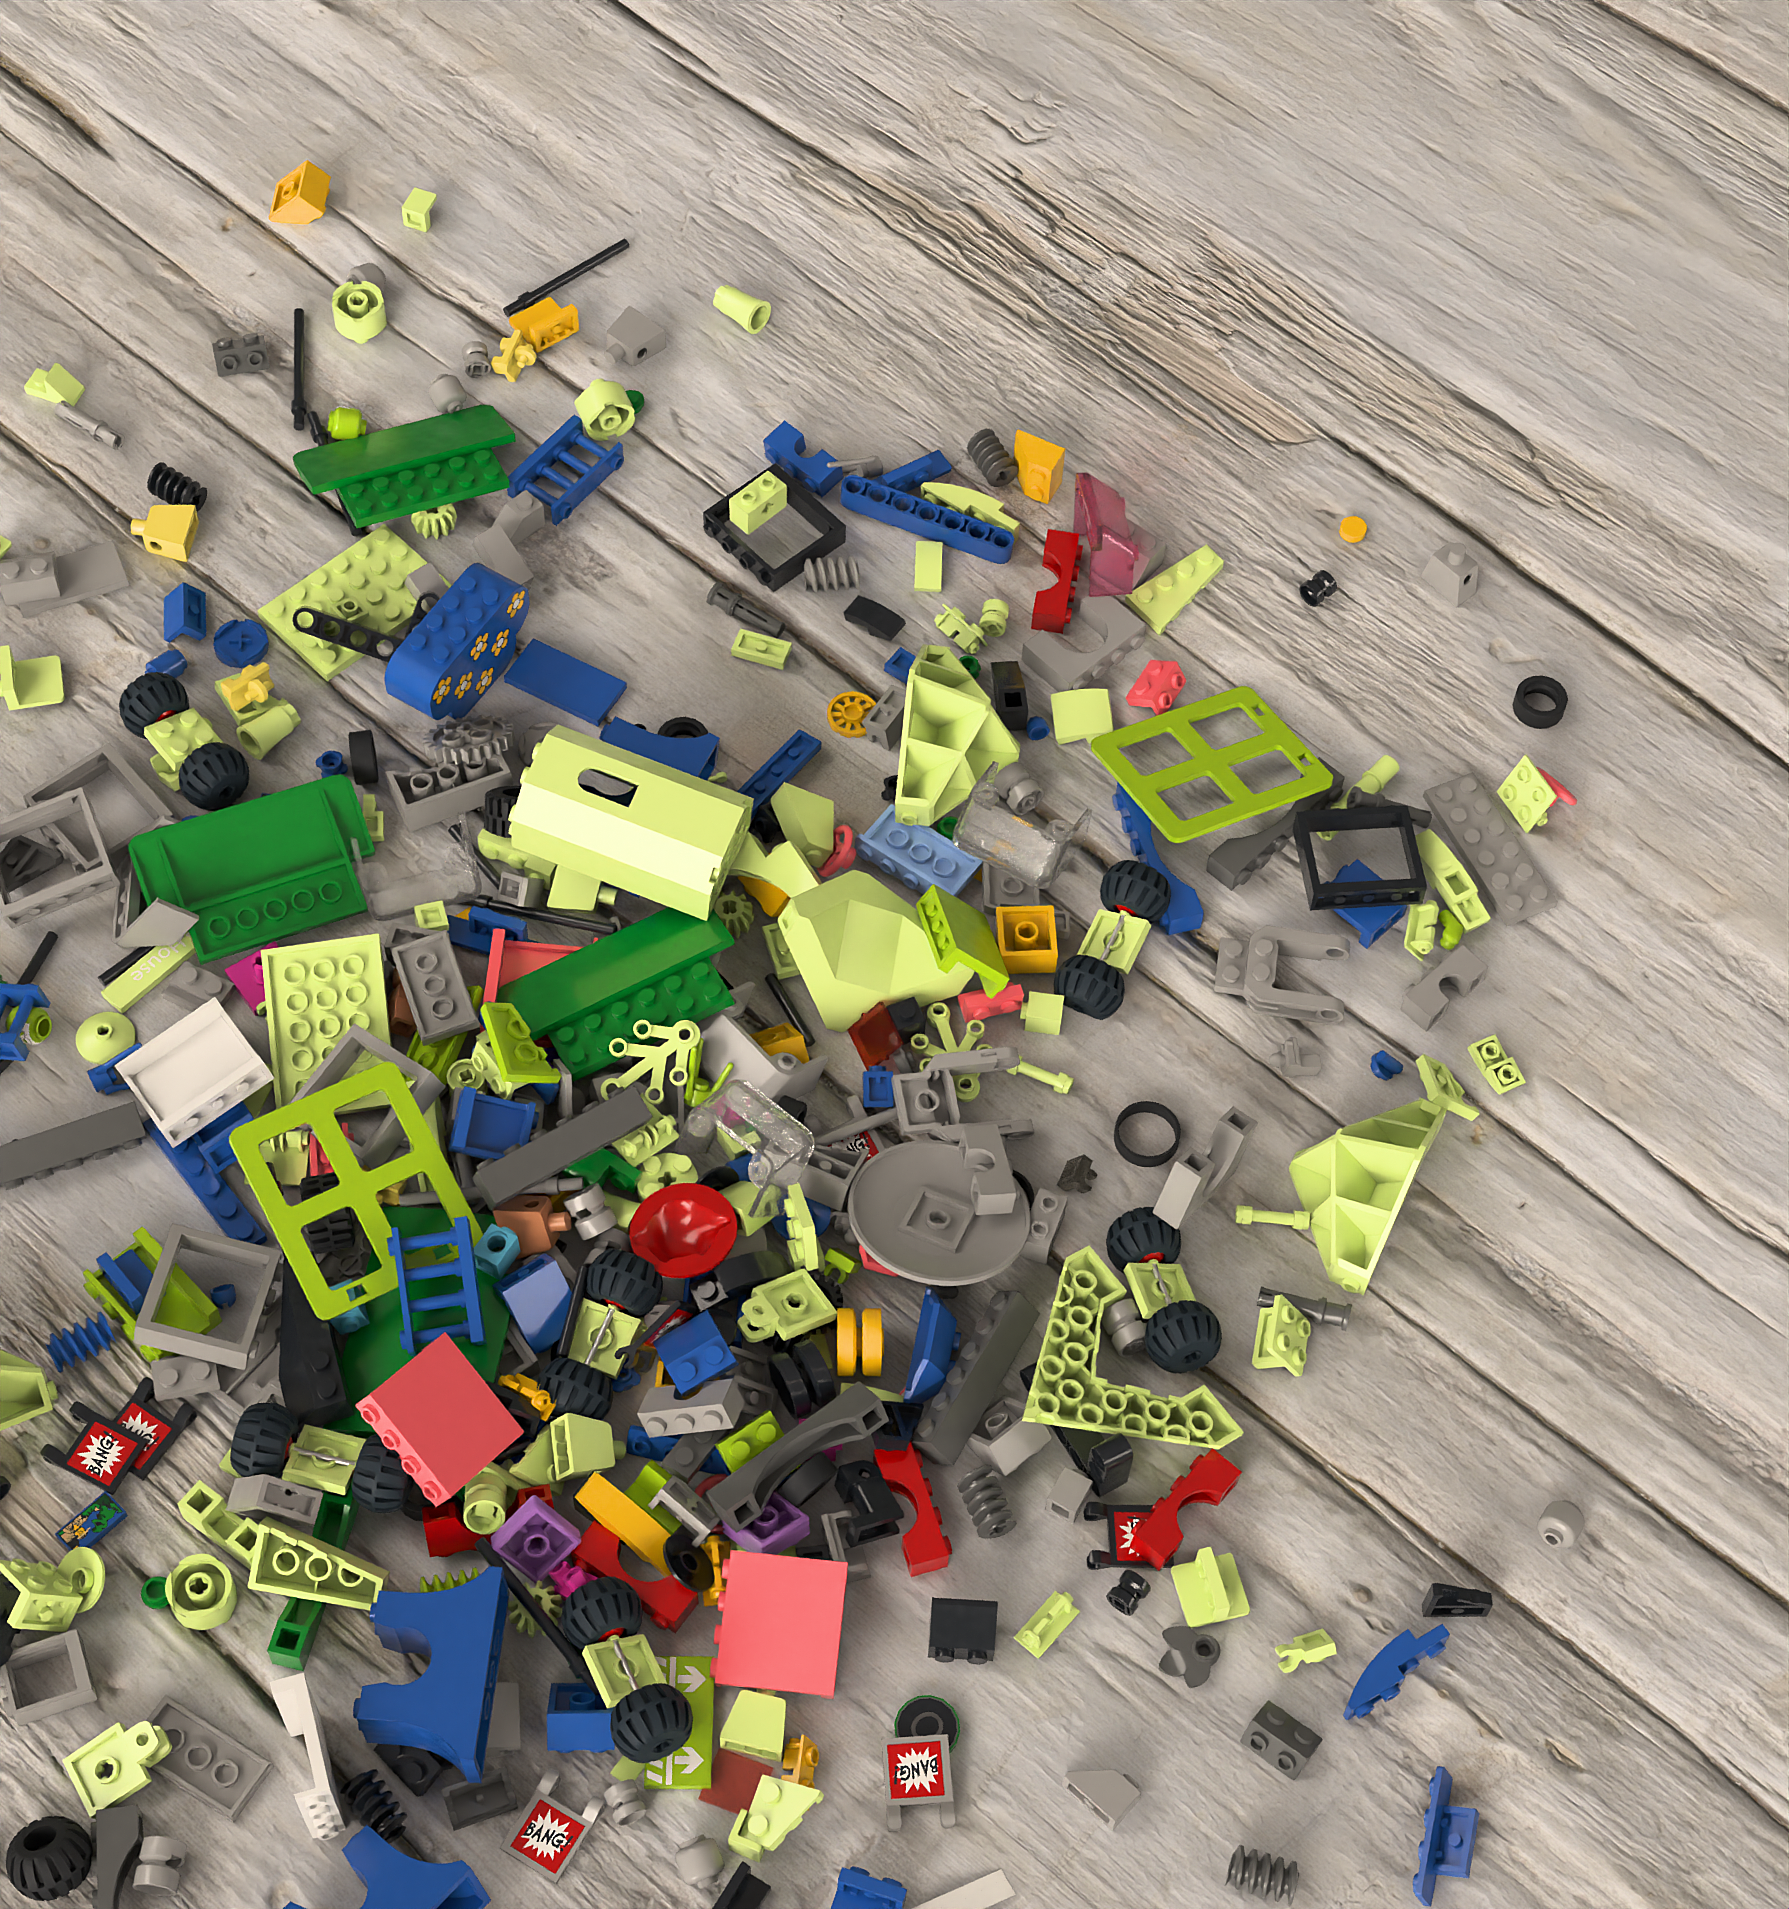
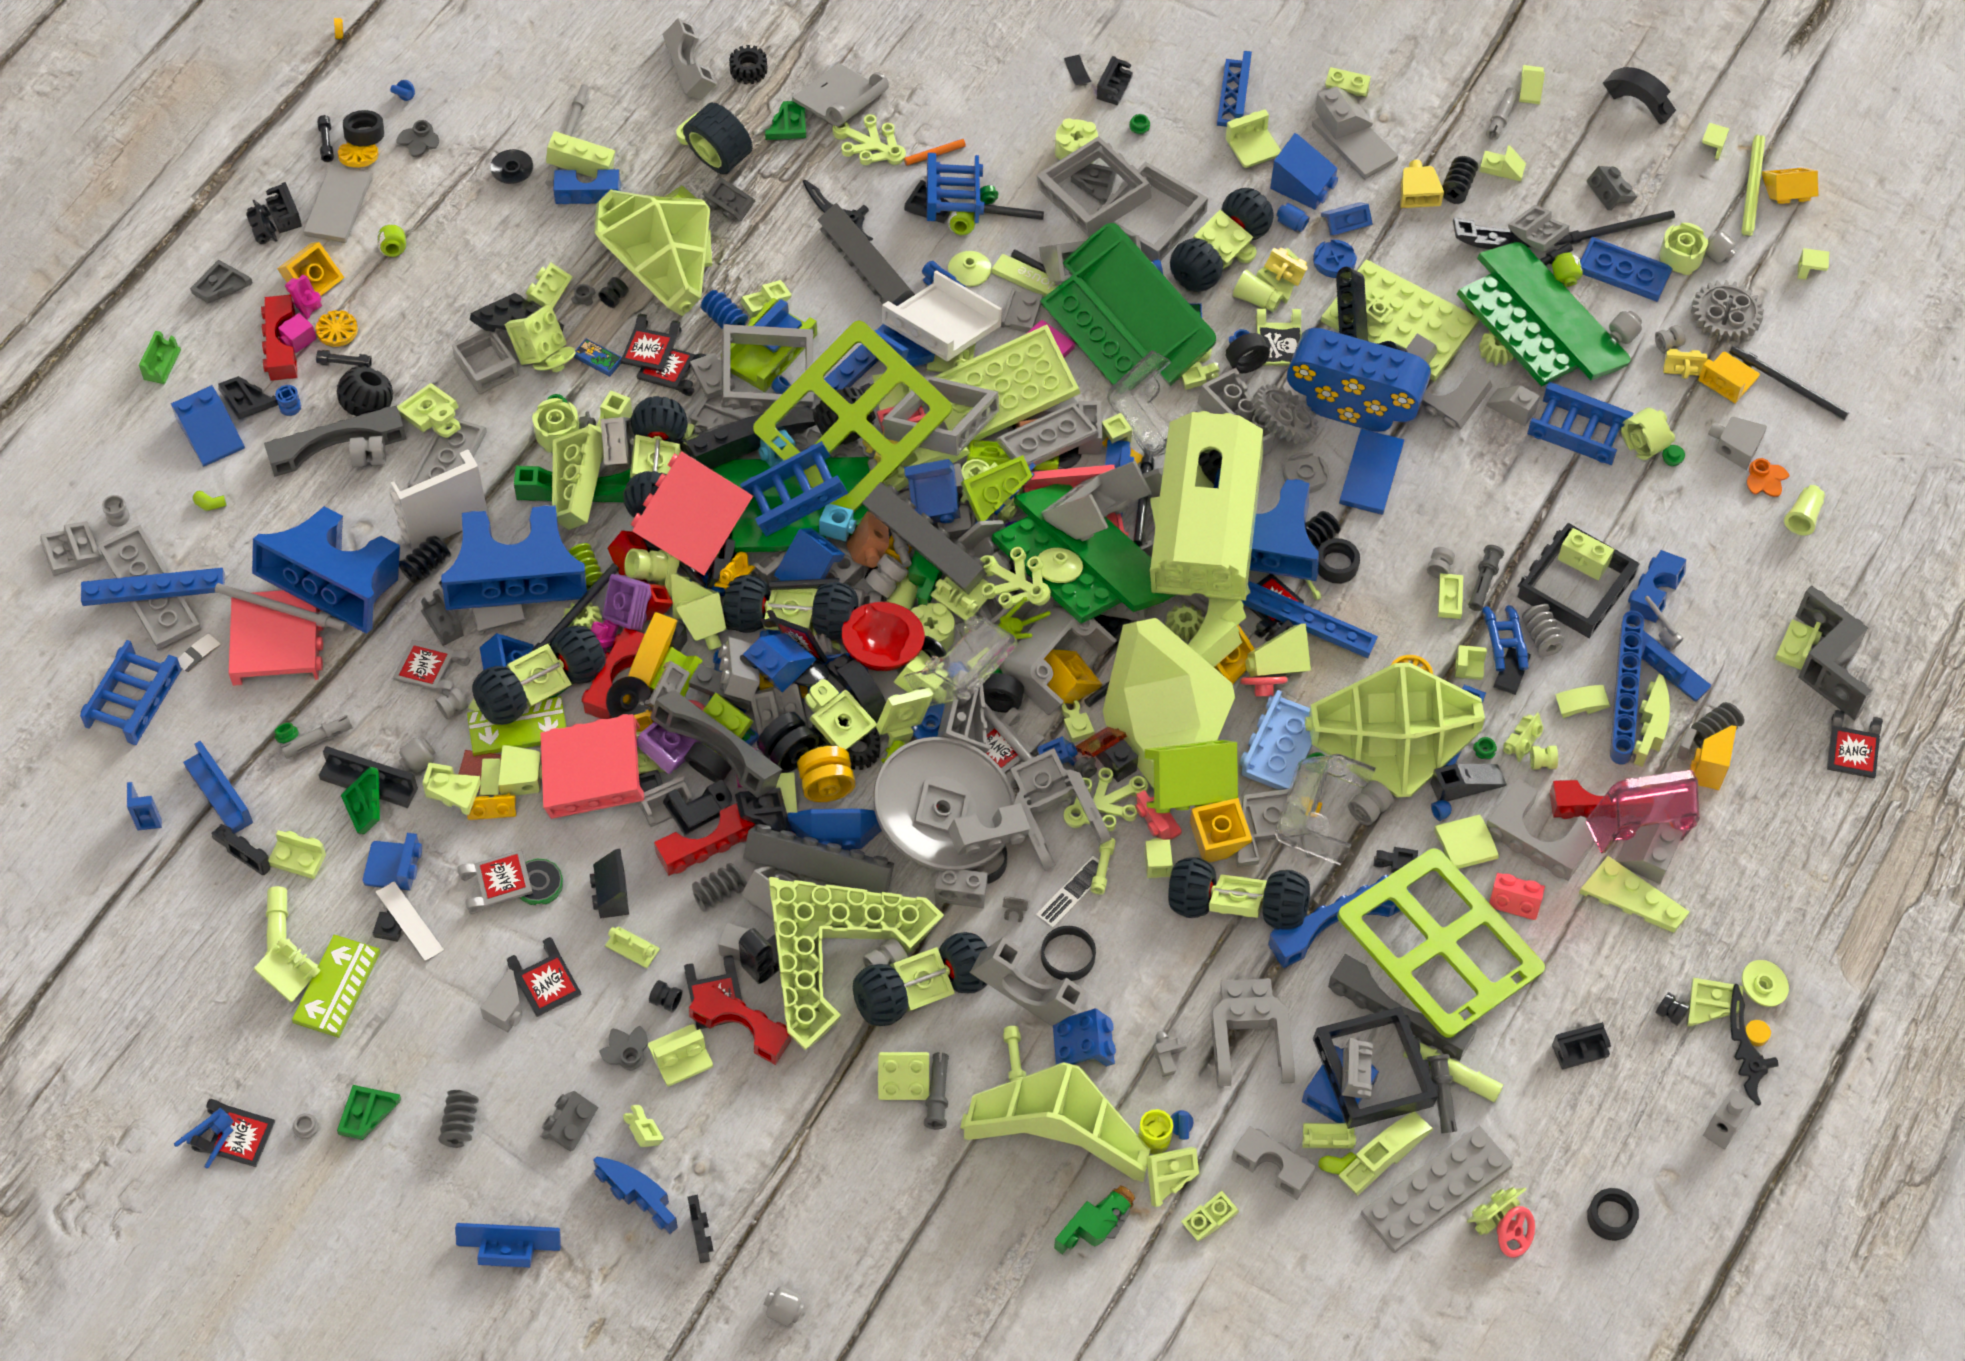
camera: 80 degrees right, 0 degrees up
(68, 1289) = (754, 302): none -> yellowish green slope
(107, 638) = (1303, 173): none -> blue slope
(111, 282) = (1643, 86): none -> black arch
(166, 445) = (1506, 166): none -> yellowish green slope
(210, 1548) = (585, 420): none -> dark grey plate
(212, 239) = (1715, 137): none -> yellowish green panel
(273, 475) = (1483, 236): none -> black slope
(280, 433) = (1538, 228): none -> light grey slope
(286, 230) = (1753, 185): none -> yellowish green axle
(337, 722) = (1280, 337): none -> flag
(360, 374) = (1625, 269): none -> blue tile
(456, 300) = (1743, 316): none -> light grey gear
(535, 956) = (1086, 505): none -> light grey windscreen
(645, 1002) = (1060, 565): none -> yellowish green dish
(686, 332) = (1768, 479): none -> orange plate
(715, 645) = (1440, 562): none -> light grey wheel
(748, 1768) = (490, 776): none -> yellowish green sticker
(841, 1059) = (1076, 724): none -> yellowish green plate
(844, 616) = (1498, 644): none -> blue piece
(853, 656) = (1470, 662): none -> yellowish green panel
(904, 363) = (1798, 643): none -> yellowish green bracket
(931, 333) = (1825, 662): none -> dark grey bracket
(1006, 490) = (1686, 744): none -> light grey tile
(1038, 357) = (1854, 750): none -> flag
(1062, 1116) = (1069, 893): none -> sticker
(1076, 1739) = (546, 982): none -> flag
(1093, 780) = (1396, 859): none -> black plate
(1271, 1145) = (1084, 1038): none -> blue bracket
(1303, 503) = (1772, 979): none -> yellowish green dish
(1312, 551) = (1709, 1001): none -> yellowish green wing
(1345, 677) = (1581, 1045): none -> black hinge
(1374, 868) = (1357, 1069): none -> light grey hinge
(1388, 539) = (1754, 1063): none -> black piece
(1394, 1088) = (1156, 1130): none -> neon yellow wheel
(1494, 1175) = (1098, 1221): none -> green plate

